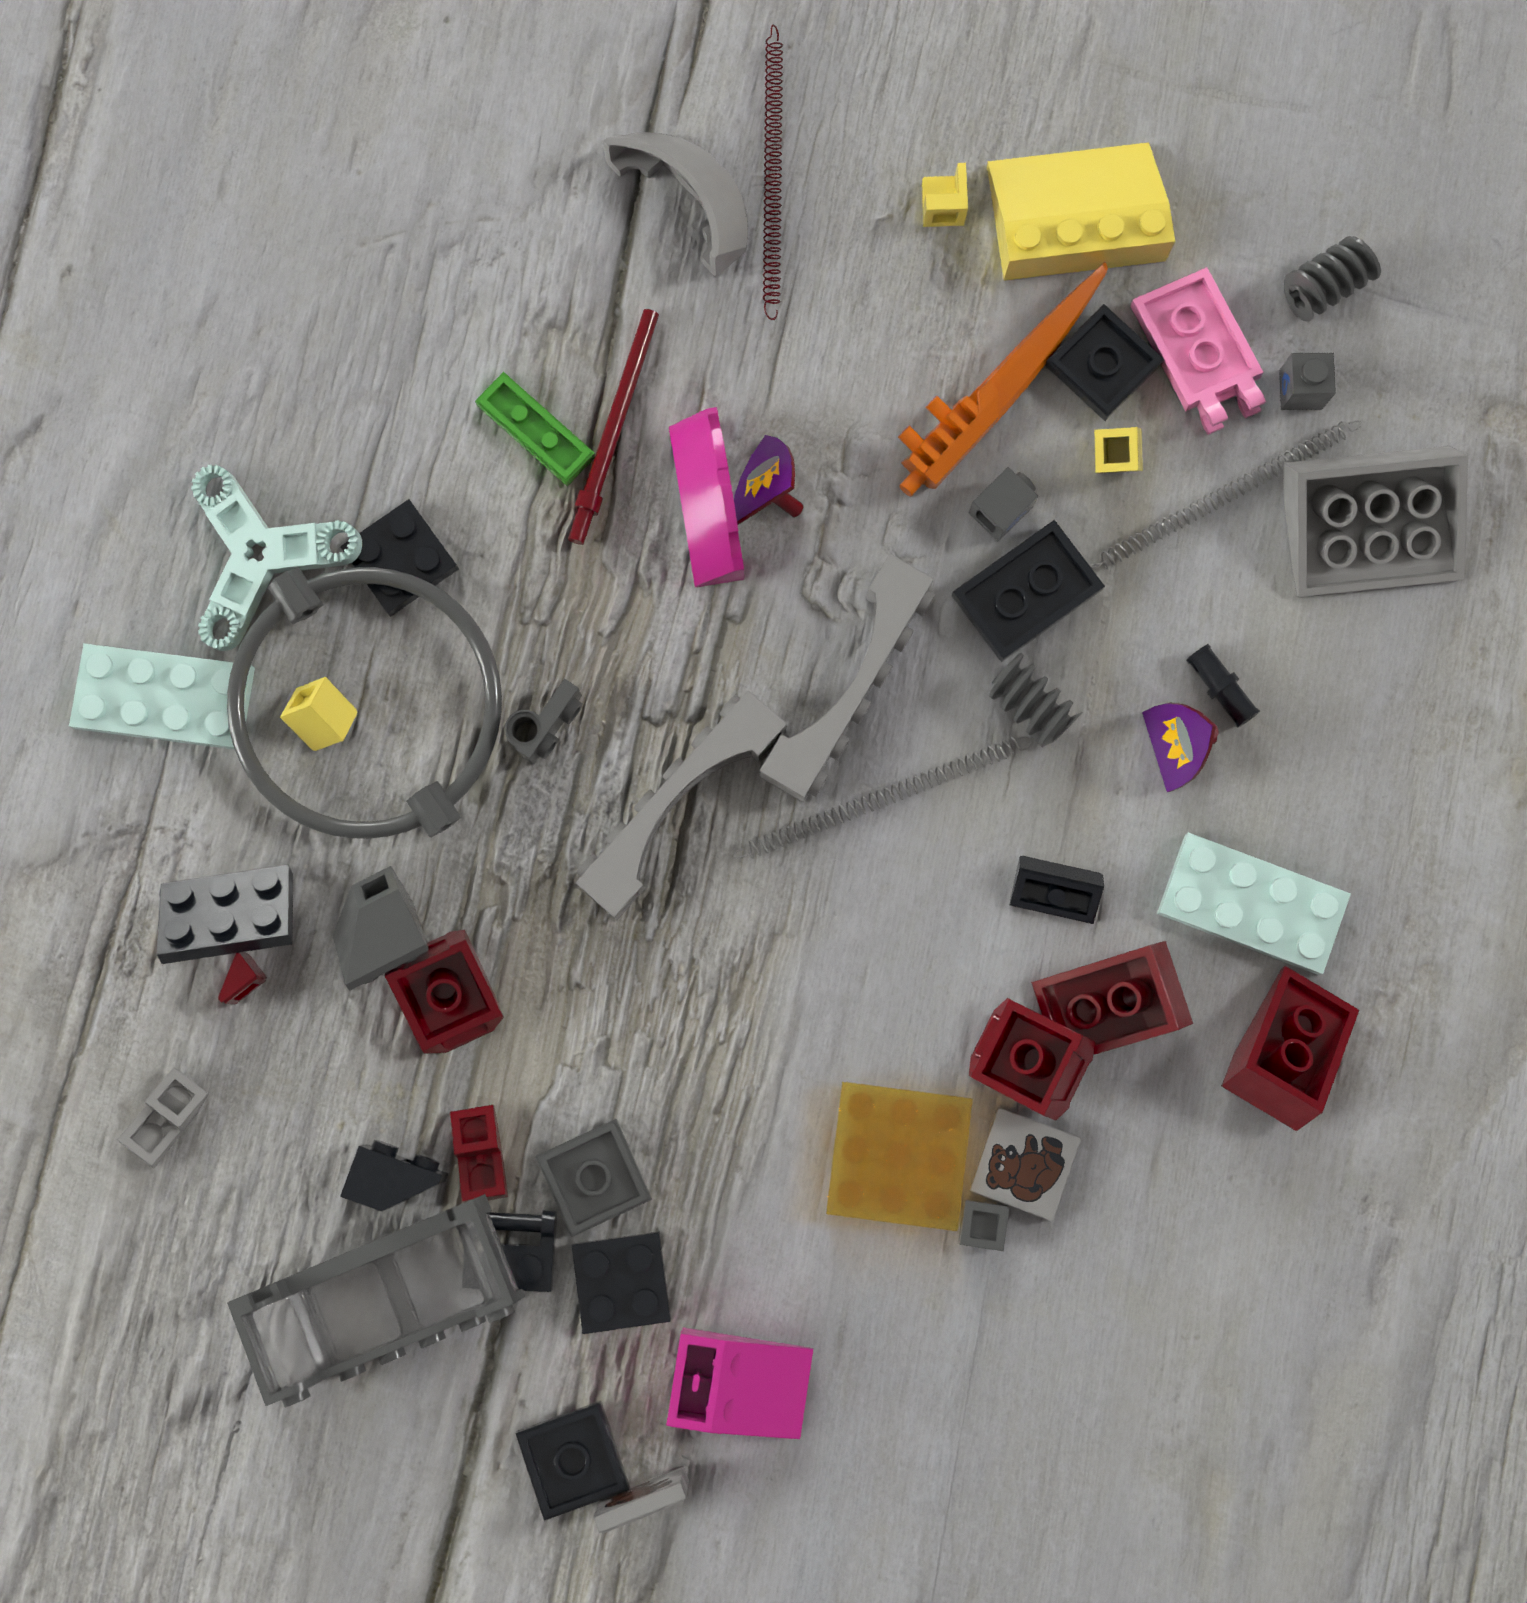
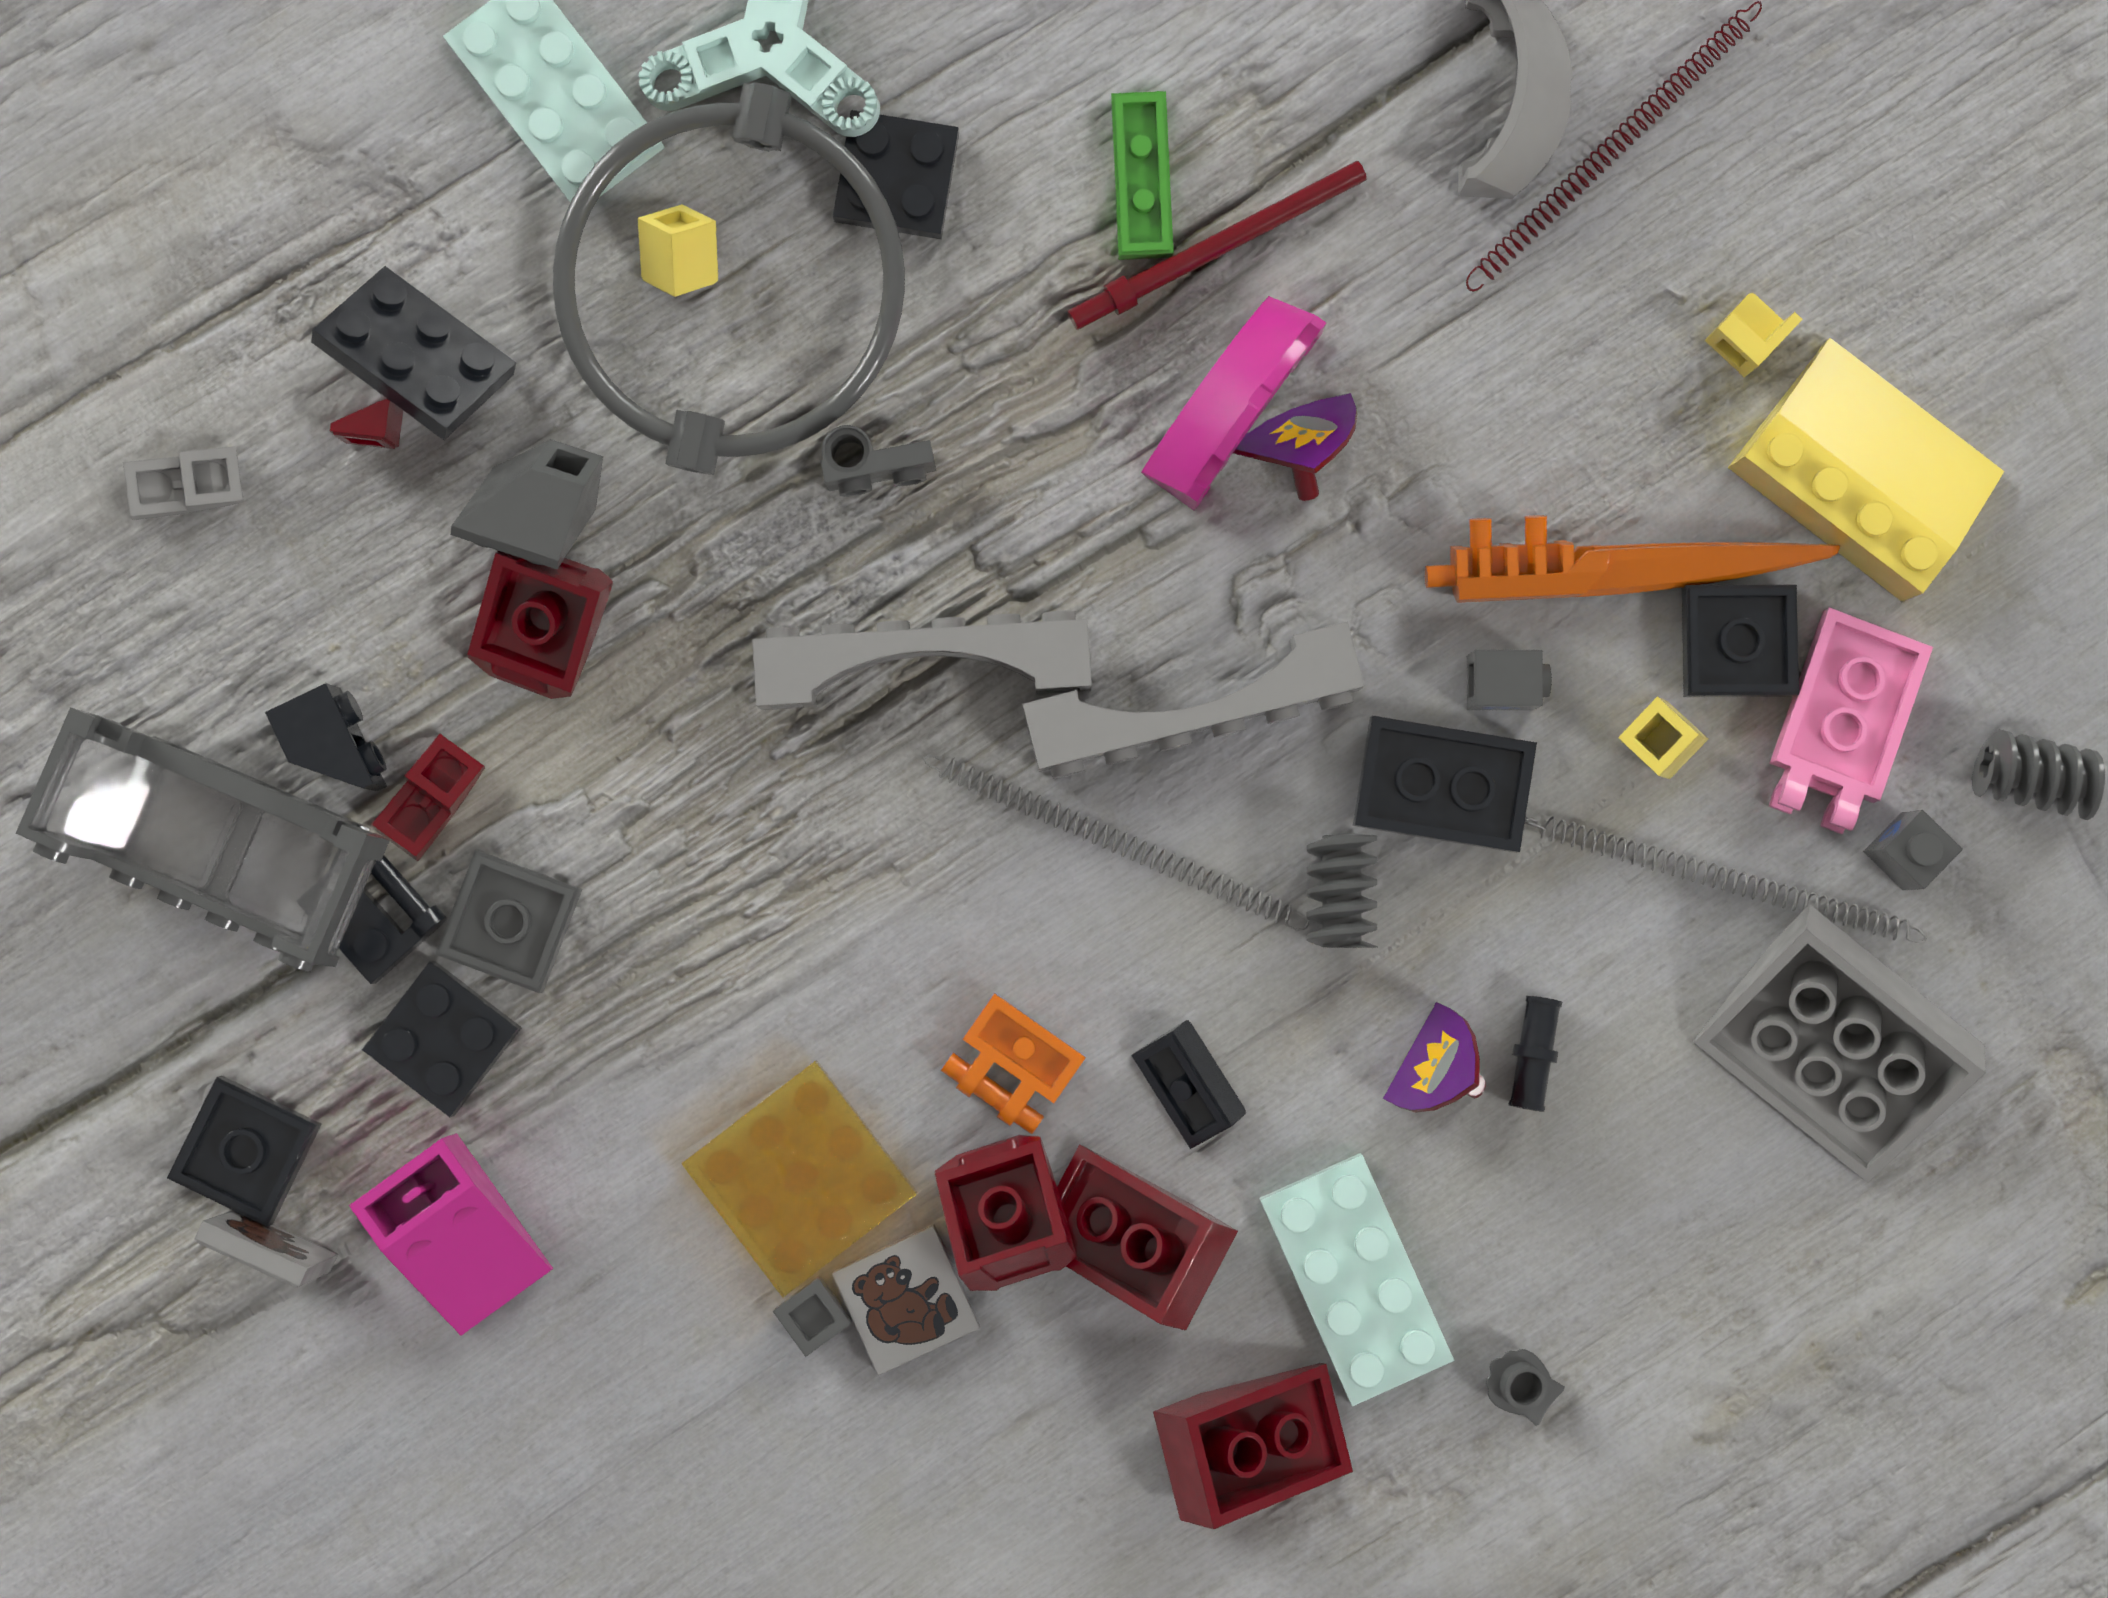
camera: 45 degrees right, 5 degrees up
(950, 960) = (1022, 1049): none -> orange plate
(1399, 870) = (1522, 1385): none -> dark grey animal

